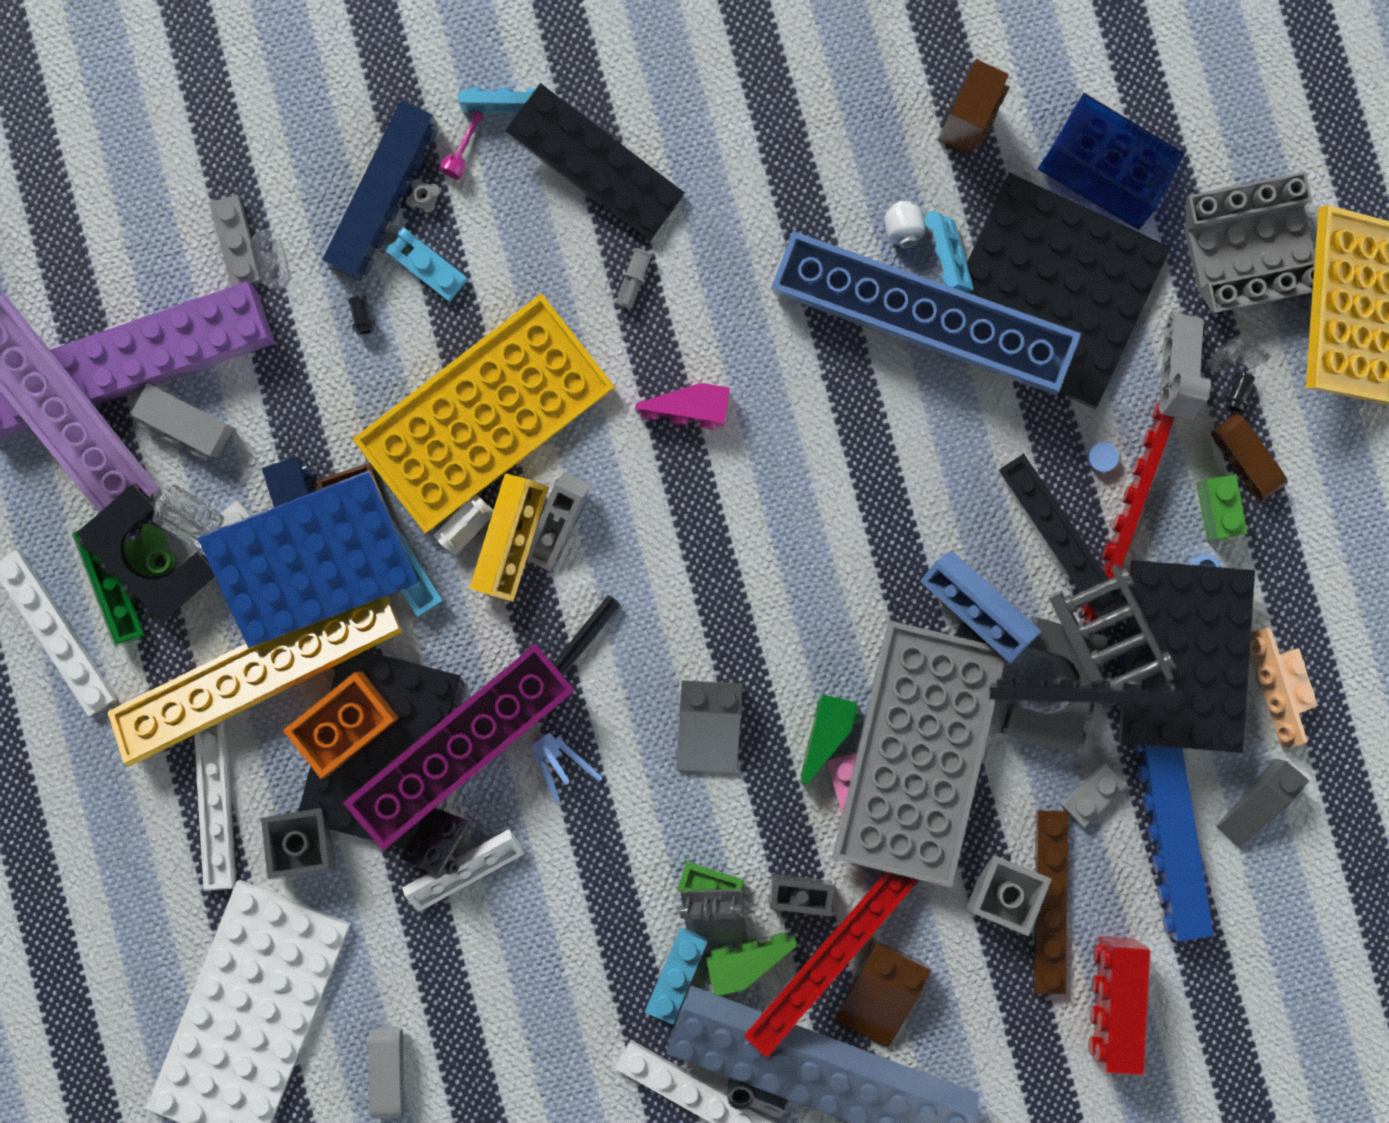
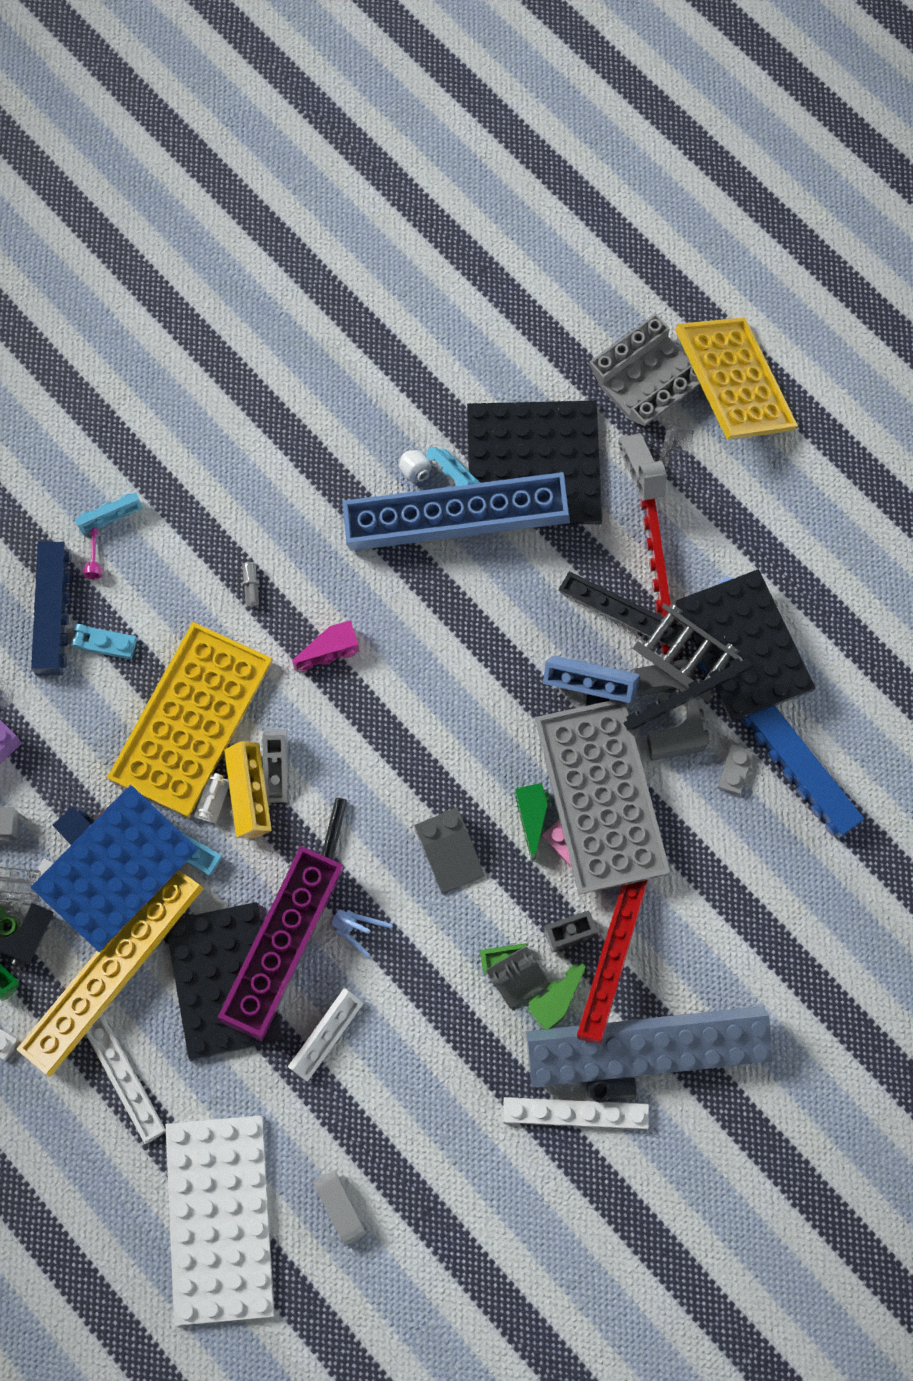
camera: 25 degrees left, 15 degrees down
(297, 844) = (198, 1072): dark grey slope -> none
(341, 724) = (190, 968): orange brick -> none
(361, 315) = (77, 698): black pin -> none
(427, 203) = (85, 603): light grey plate -> none
(435, 842) = (296, 1021): black hinge -> none
(594, 162) = (188, 522): black plate -> none
(676, 975) = (513, 1034): medium azure plate -> none
(882, 992) = (662, 973): reddish brown slope -> none
(975, 107) = (422, 372): reddish brown brick -> none
(1008, 895) = (712, 860): light grey slope -> none
(1051, 921) = (745, 855): reddish brown plate -> none
(1102, 457) = (623, 550): light blue tile -> none
(1111, 161) = (529, 367): clear blue slope -> none
(1120, 1005) = (827, 896): red brick -> none
(1221, 507) = (717, 543): bright green brick -> none
(1240, 391) = (690, 468): black pin -> none
(1249, 457) = (718, 504): reddish brown beam -> none
(1263, 801) = (849, 717): dark grey slope -> none
(1283, 686) = (821, 637): light nougat bracket -> none

